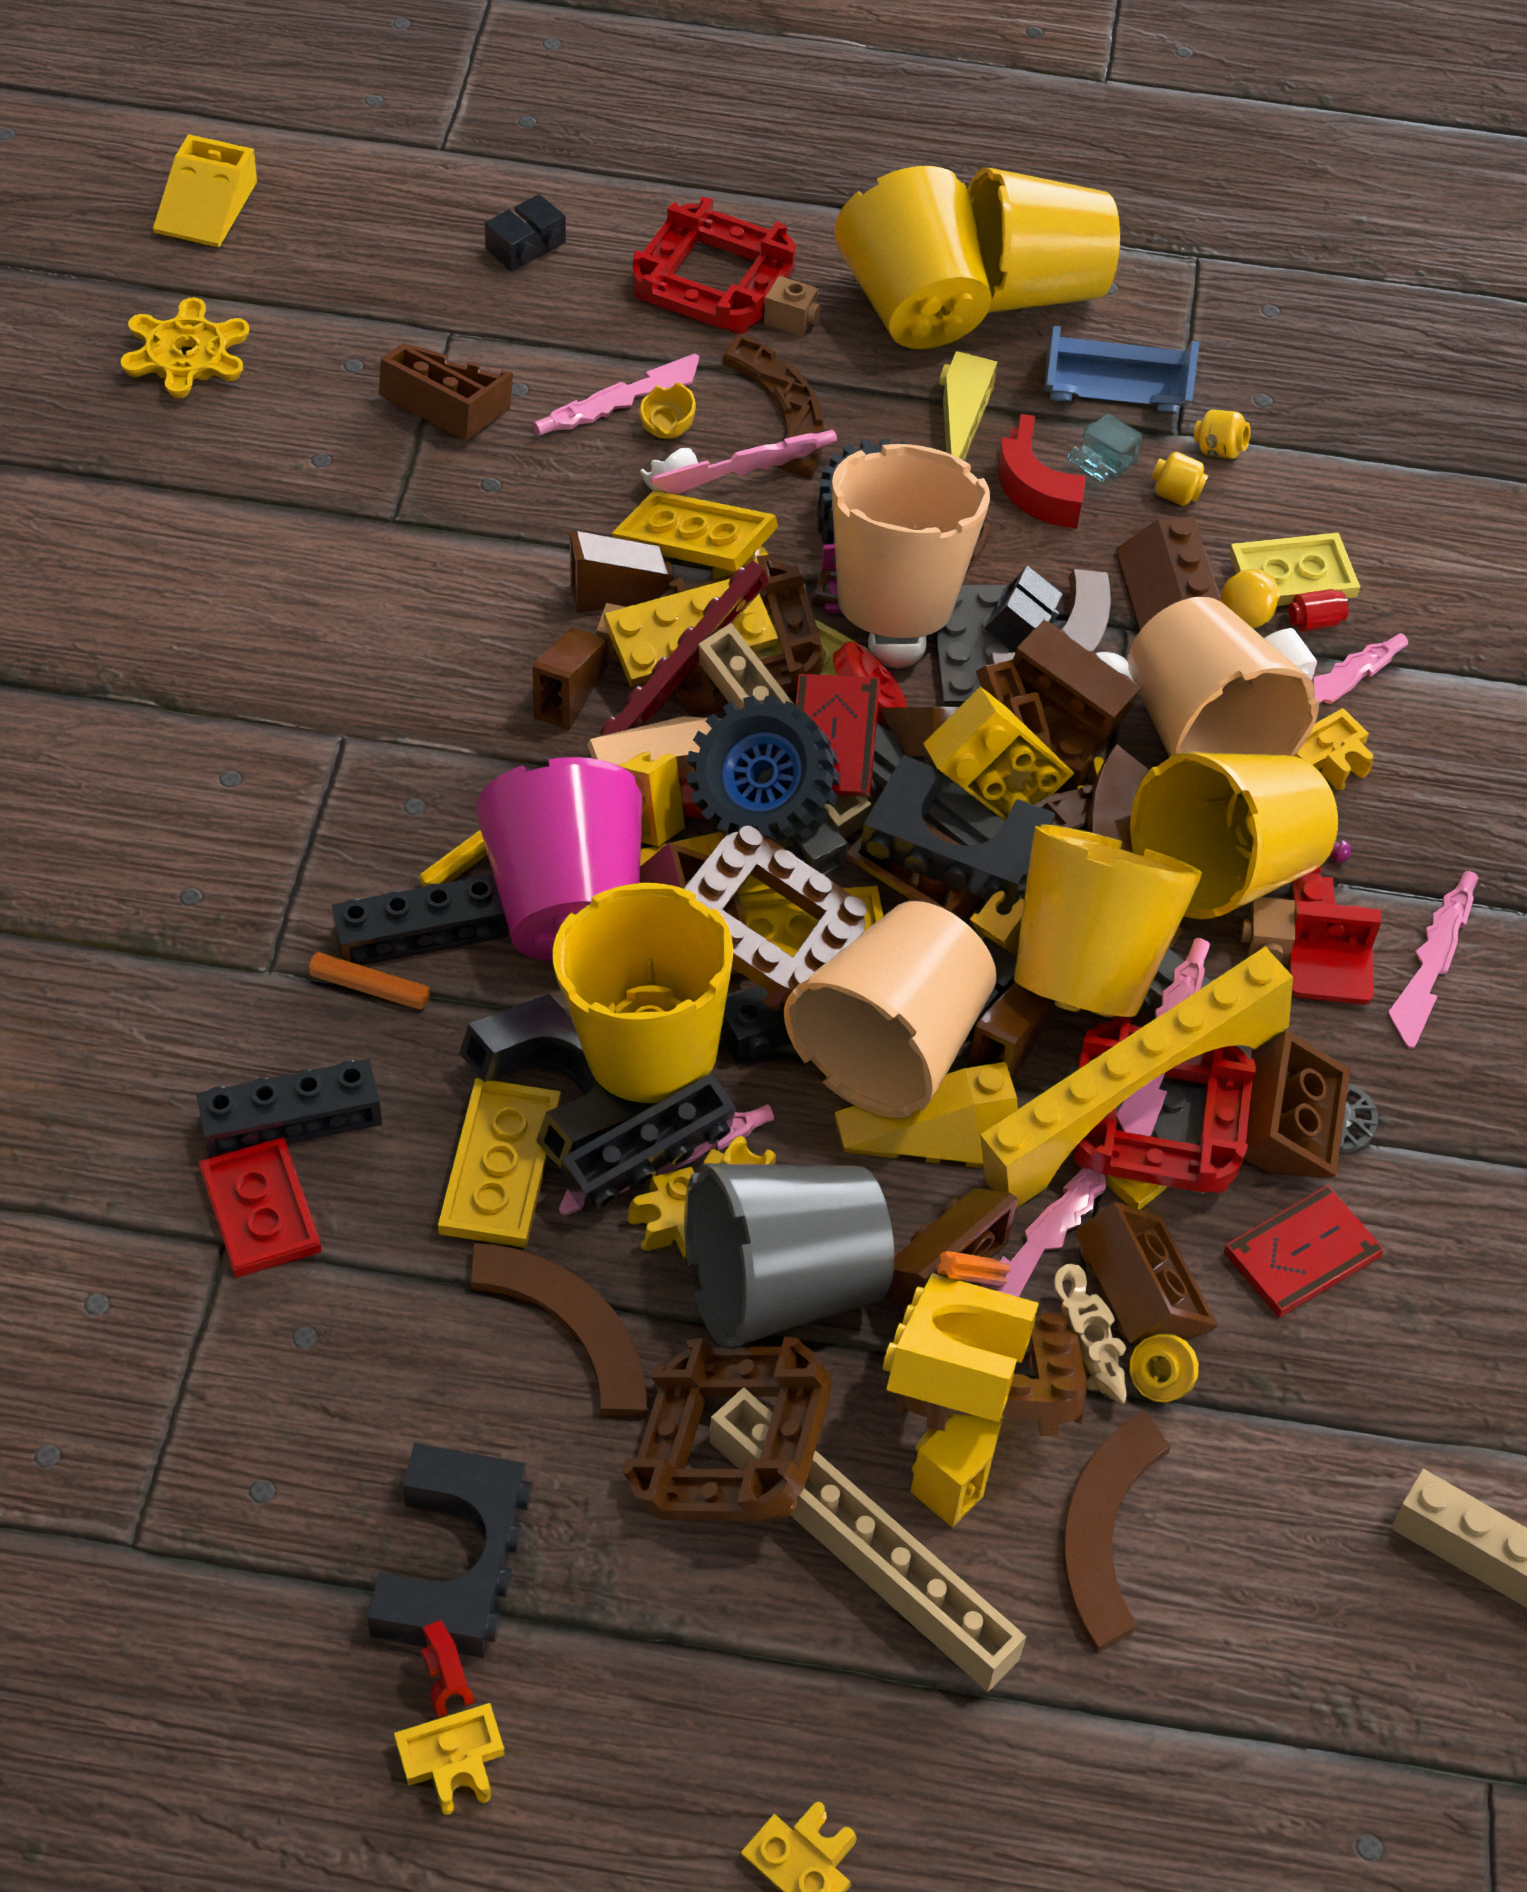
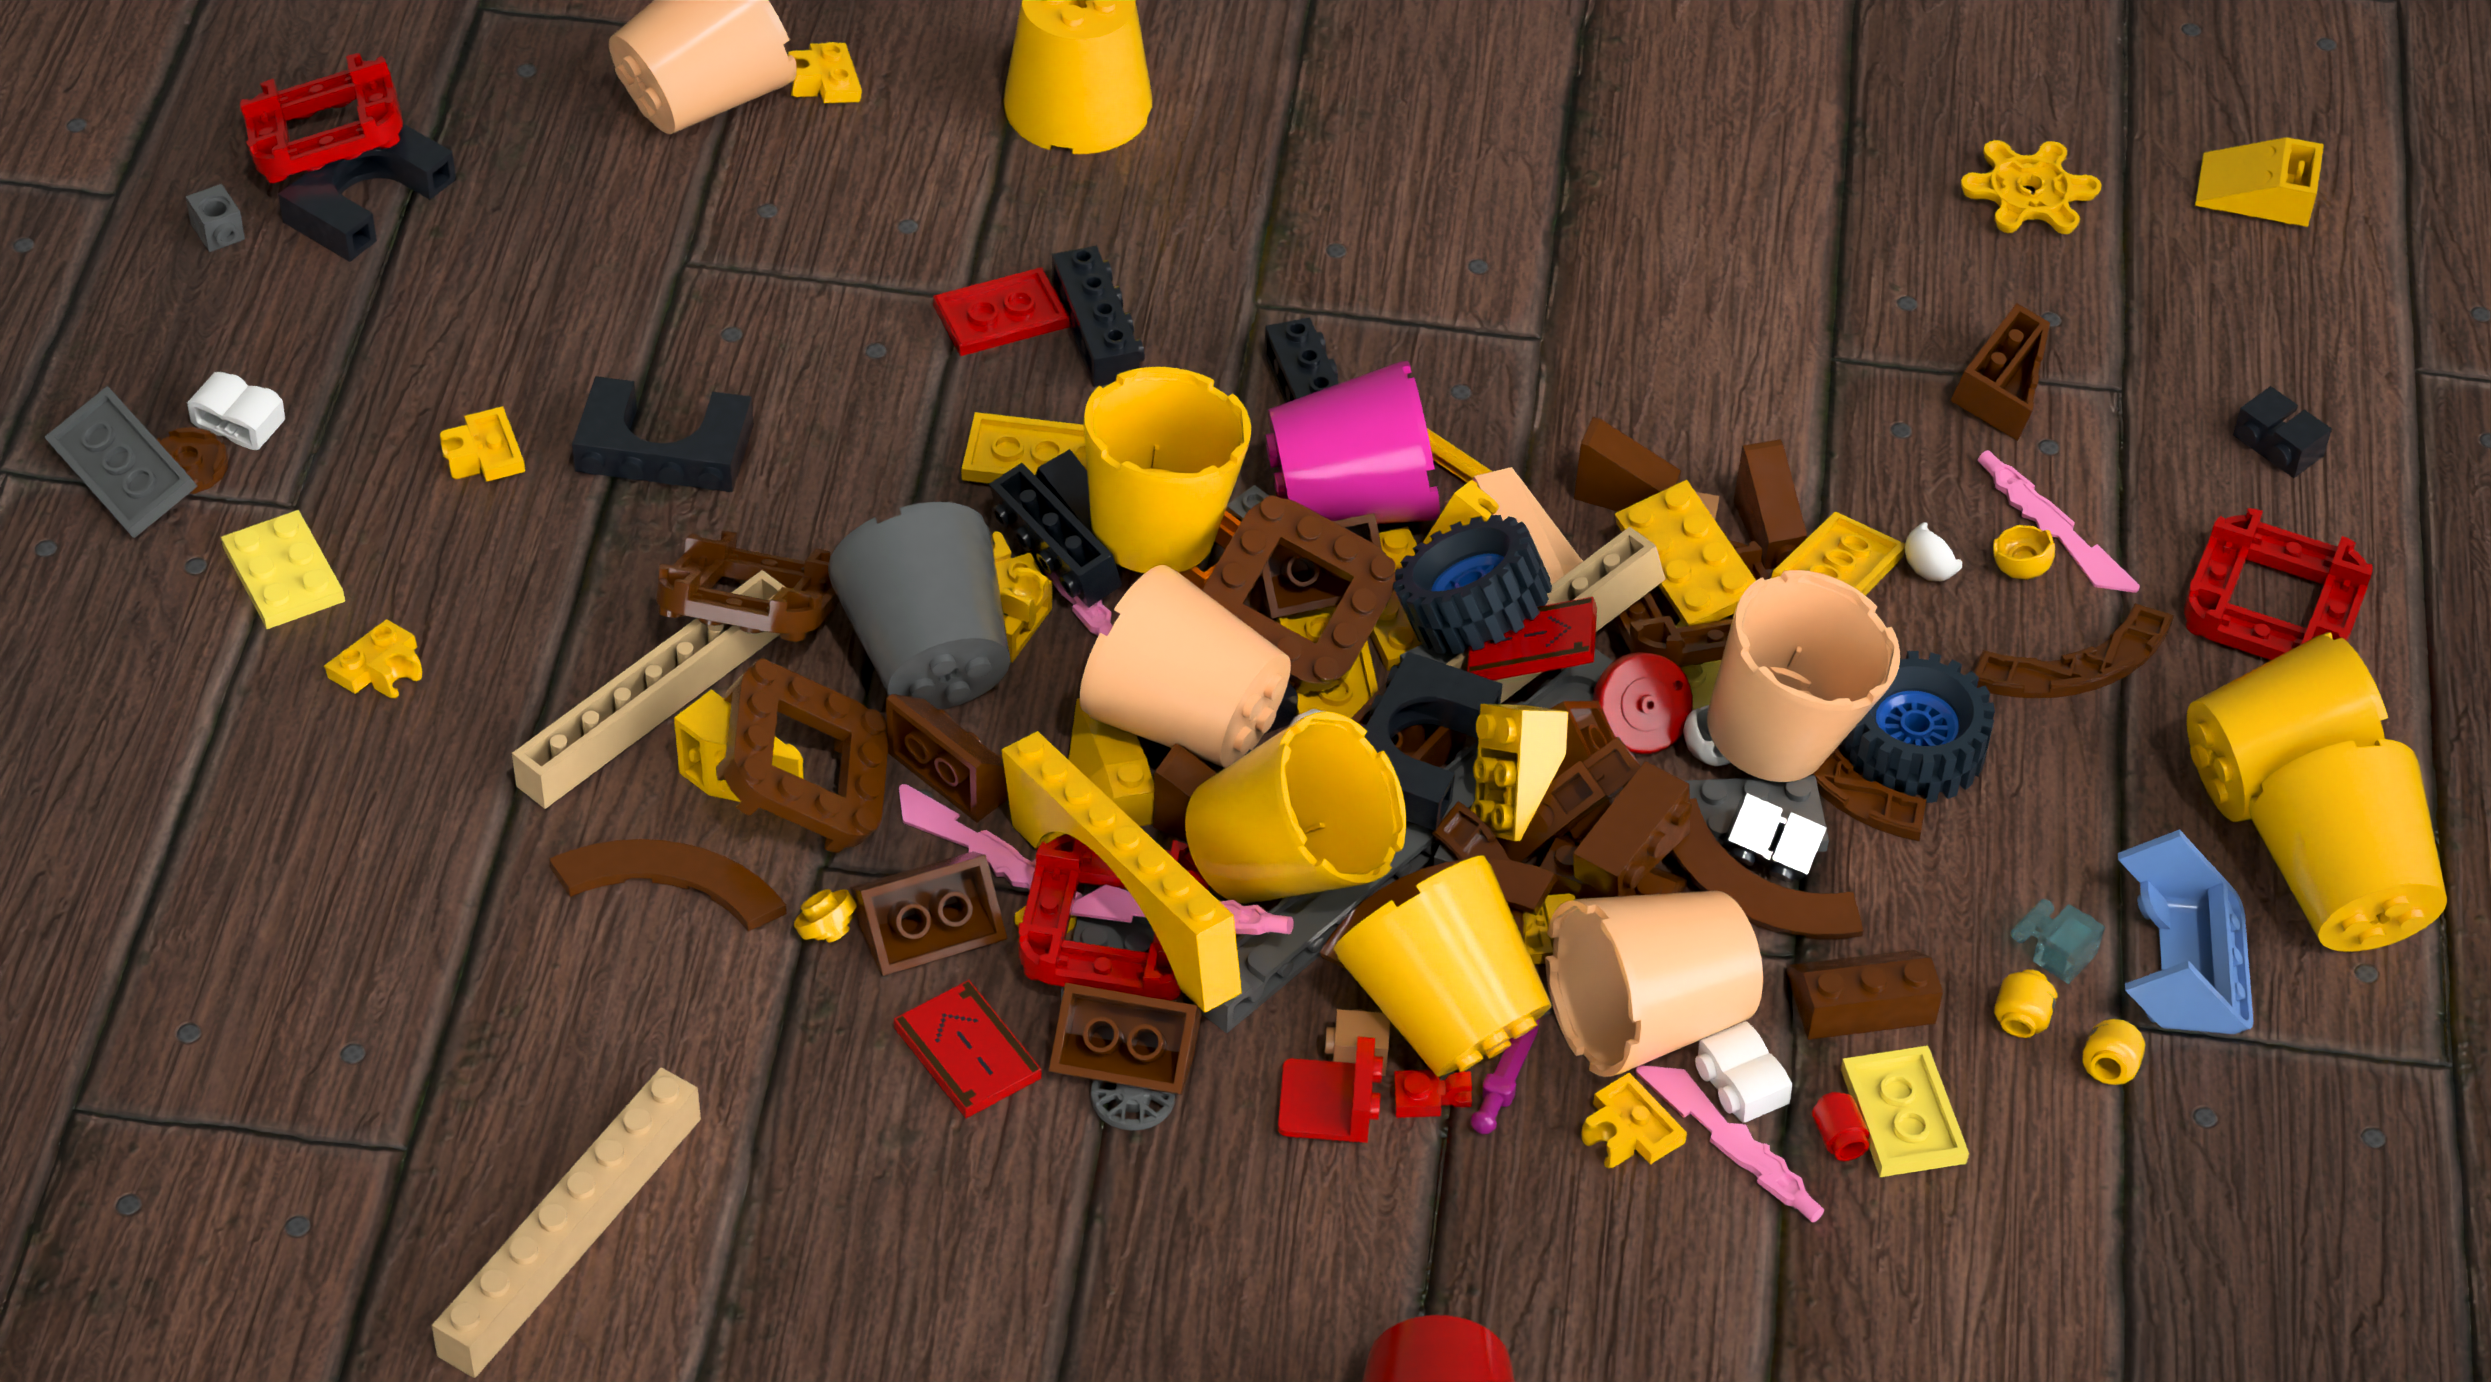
camera: 90 degrees right, 5 degrees down
(369, 980) = (1246, 360): orange axle -> none
(443, 1660) = (551, 423): red plate -> none
(578, 1311) = (928, 482): reddish brown tile -> none
(673, 670) = (1675, 546): dark red plate -> none
(744, 462) = (1955, 609): bright pink sword -> none
(791, 306) = (2223, 662): medium nougat brick -> none
(960, 1346) = (846, 705): yellow arch -> none
(966, 394) = (2103, 809): light yellow slope -> none
(973, 1268) = (912, 751): orange axle -> none
(1034, 487) = (2001, 858): red arch -> none
(1091, 1322) = (865, 858): tan animal -> none
(1251, 596) = (1840, 1052): yellow hair -> none
(1416, 1002) = (1348, 1202): bright pink sword -> none

